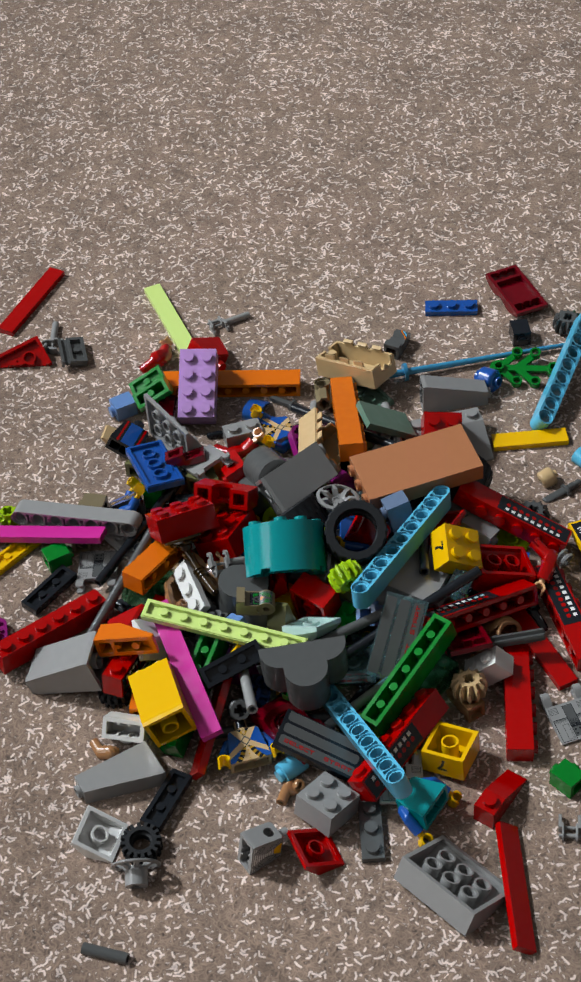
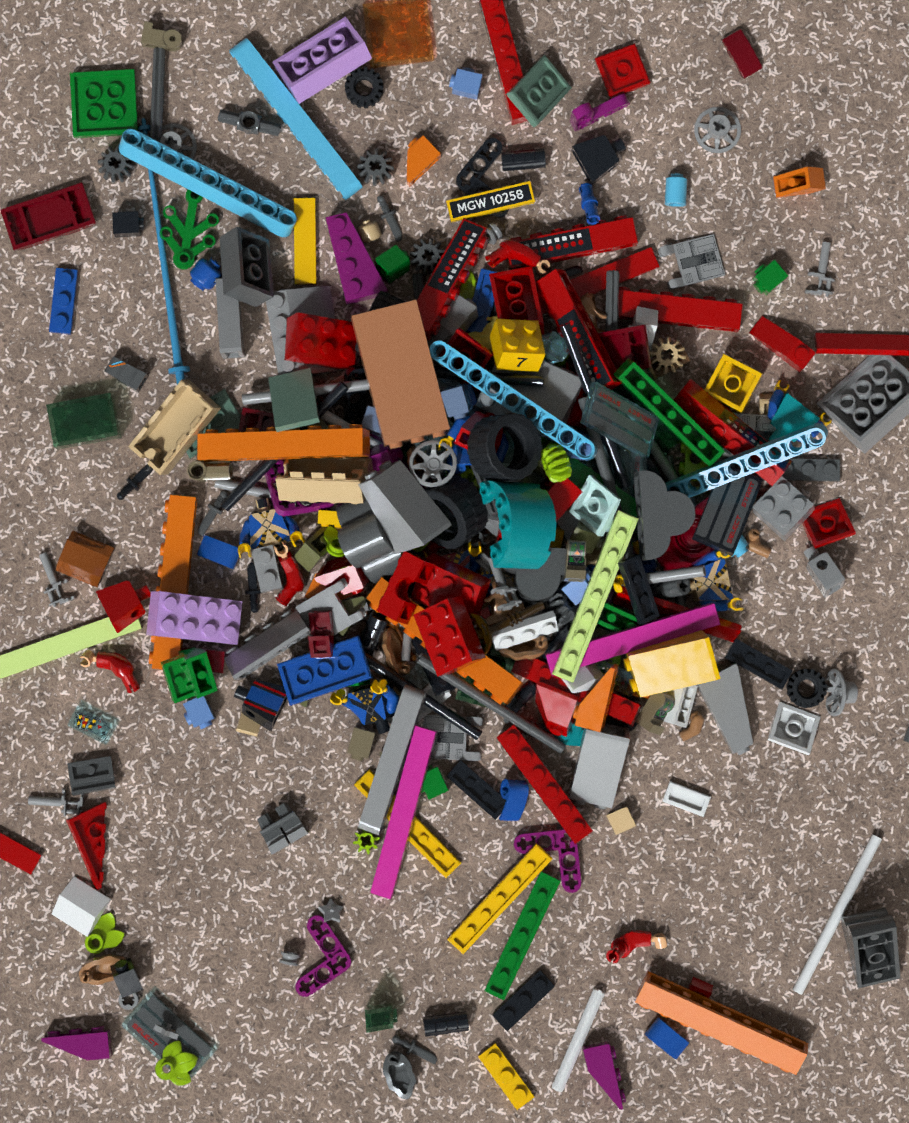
camera: 95 degrees left, 40 degrees up
(15, 701) = (621, 820): none -> tan slope
(21, 463) = (273, 833): none -> dark grey hips
(32, 751) = (686, 798): none -> white tile
(33, 611) = (516, 795): none -> blue panel
(113, 351) = (92, 725): none -> clear light blue tile
(114, 704) = (655, 712): none -> dark tan leg
(246, 332) = (84, 558): none -> dark orange slope
(307, 356) = (134, 482): none -> black piece
(356, 320) = (83, 421): none -> clear green brick
(496, 389) = (246, 267): none -> dark grey brick
(520, 489) = (393, 263): none -> green brick
(521, 463) = (356, 270): none -> magenta wedge

